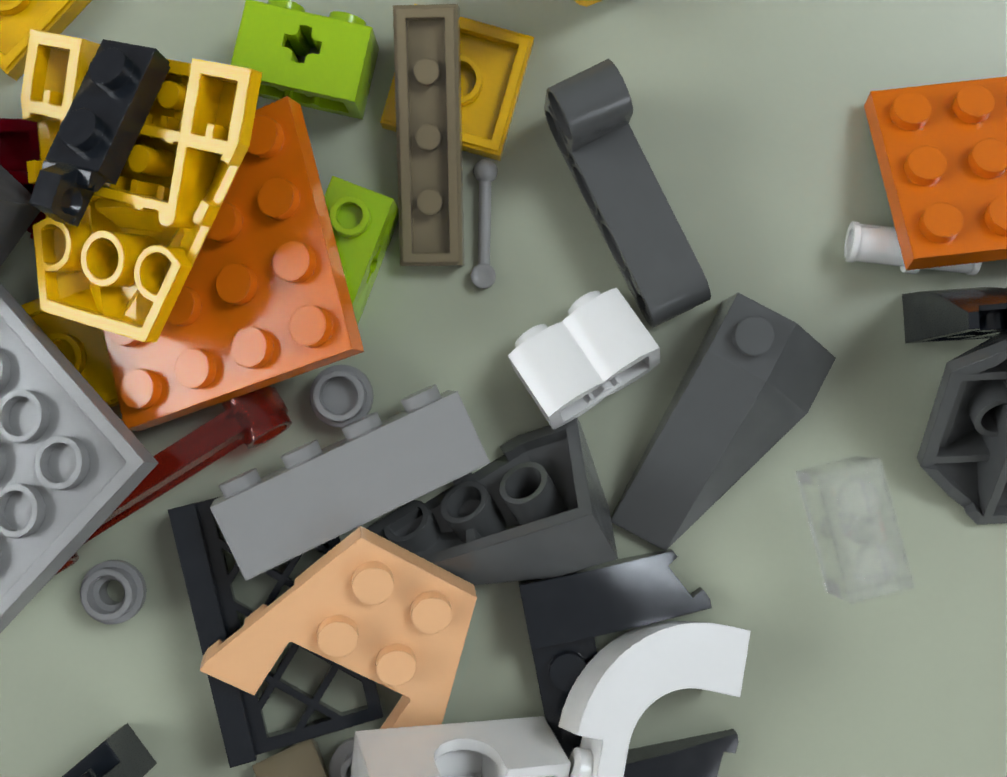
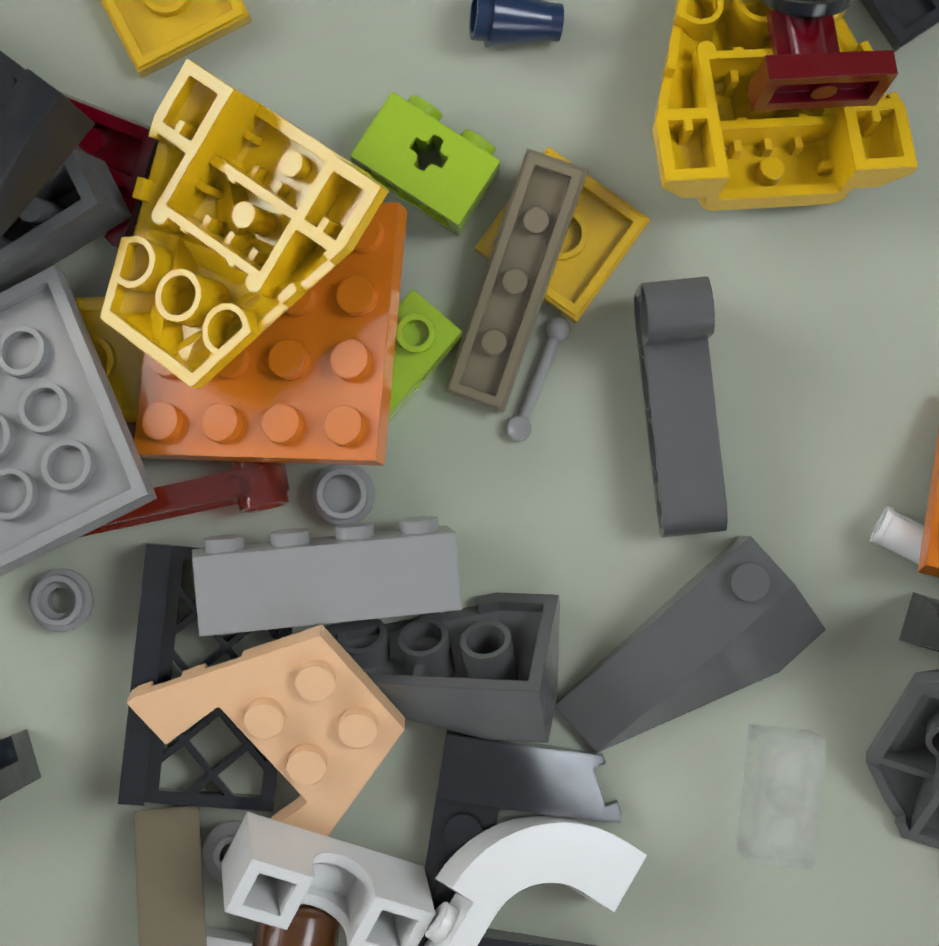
camera: 15 degrees right, 0 degrees up
(99, 128) = (219, 175): black hinge -> none
(584, 356) = (585, 541): white brick -> none

